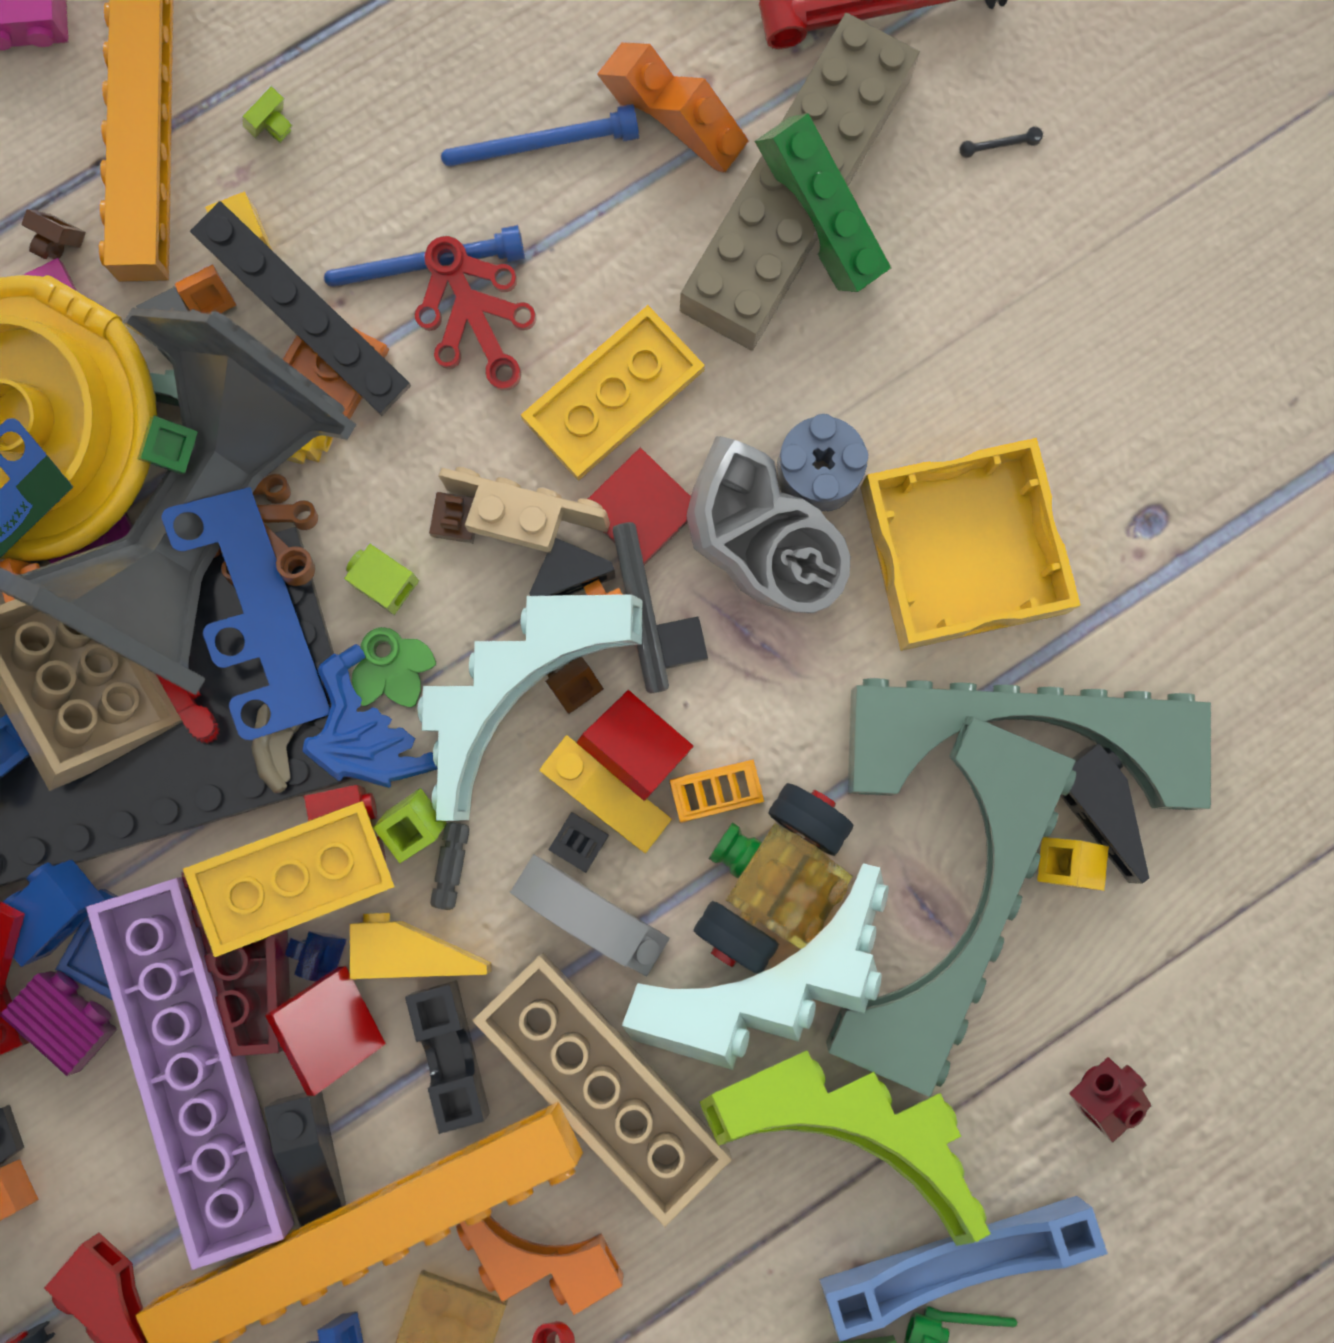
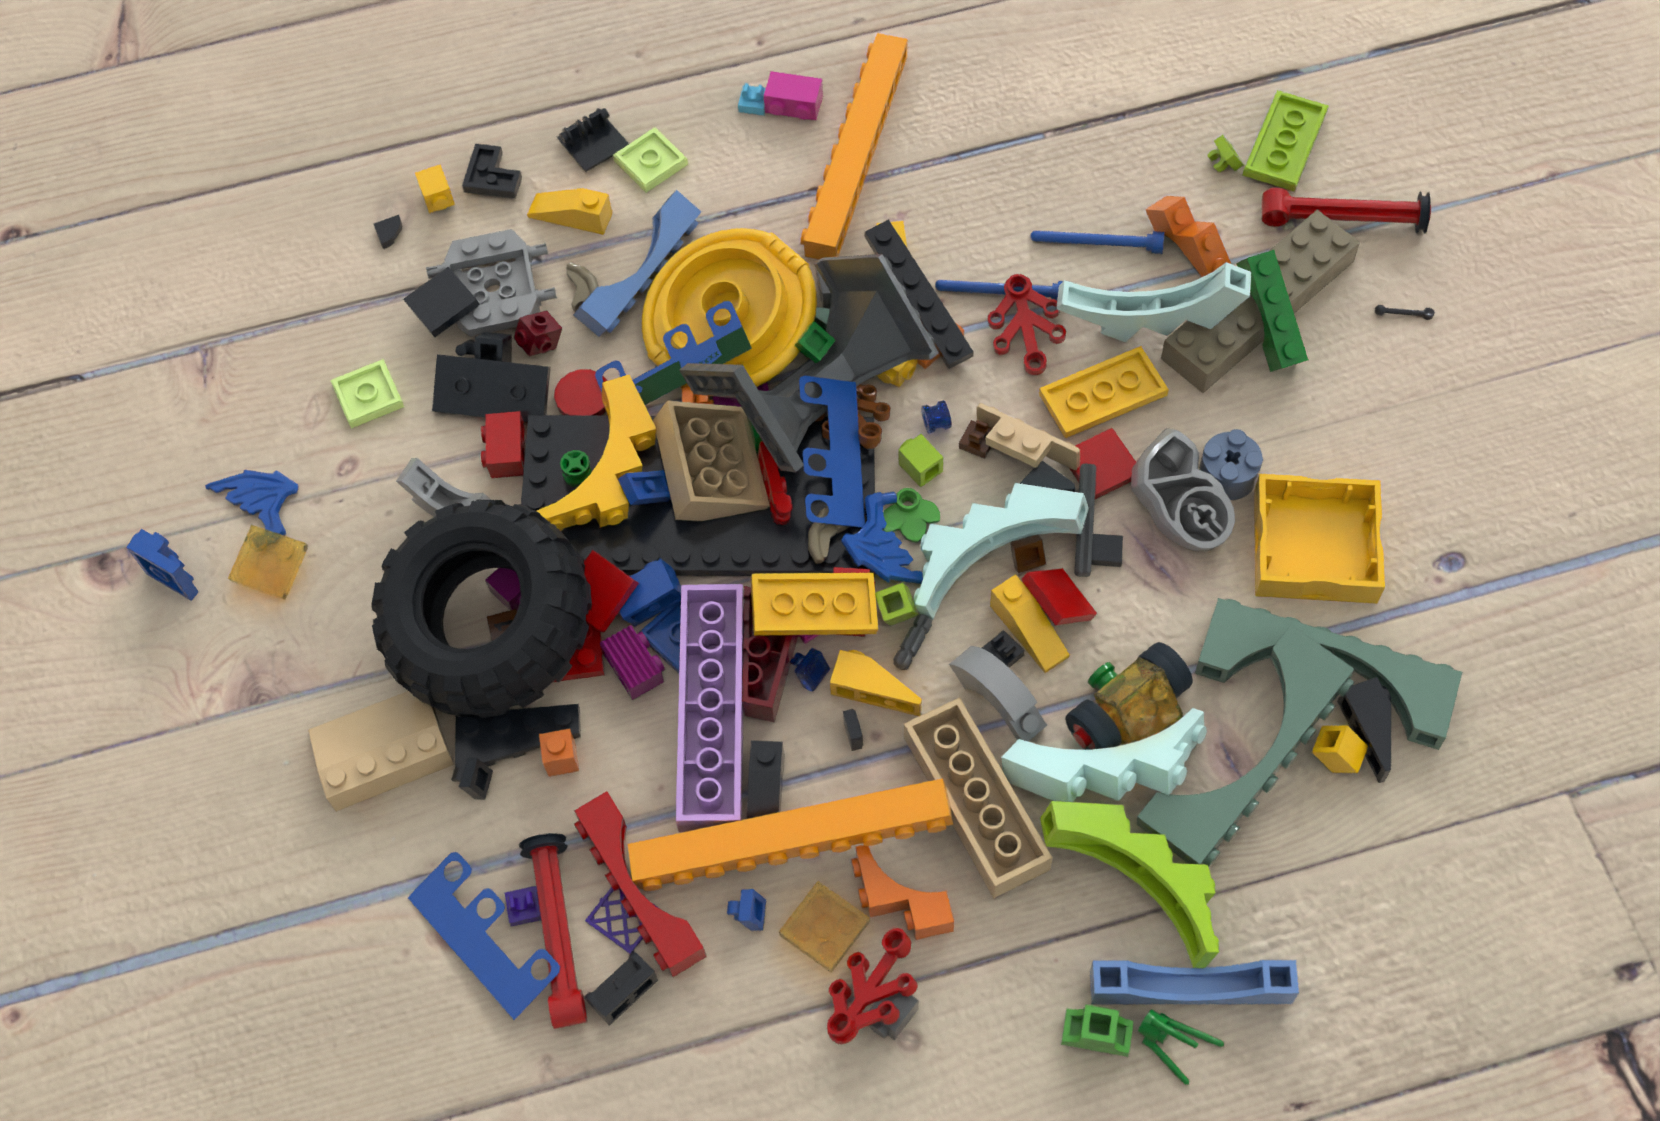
camera: 25 degrees right, 20 degrees down
(51, 234) = (774, 218): reddish brown tile -> none
(266, 115) = (928, 185): lime tile -> none
(325, 1030) = (804, 708): tile -> none
(384, 502) = (936, 416): none -> clear blue wheel
(401, 1030) = (853, 729): none -> black tile
(454, 1073) = (878, 745): black arch -> none
(668, 247) = (1162, 310): none -> light aqua arch
(681, 800) = (1095, 633): light orange slope -> none
(1112, 1098) = (1329, 906): dark red brick -> none

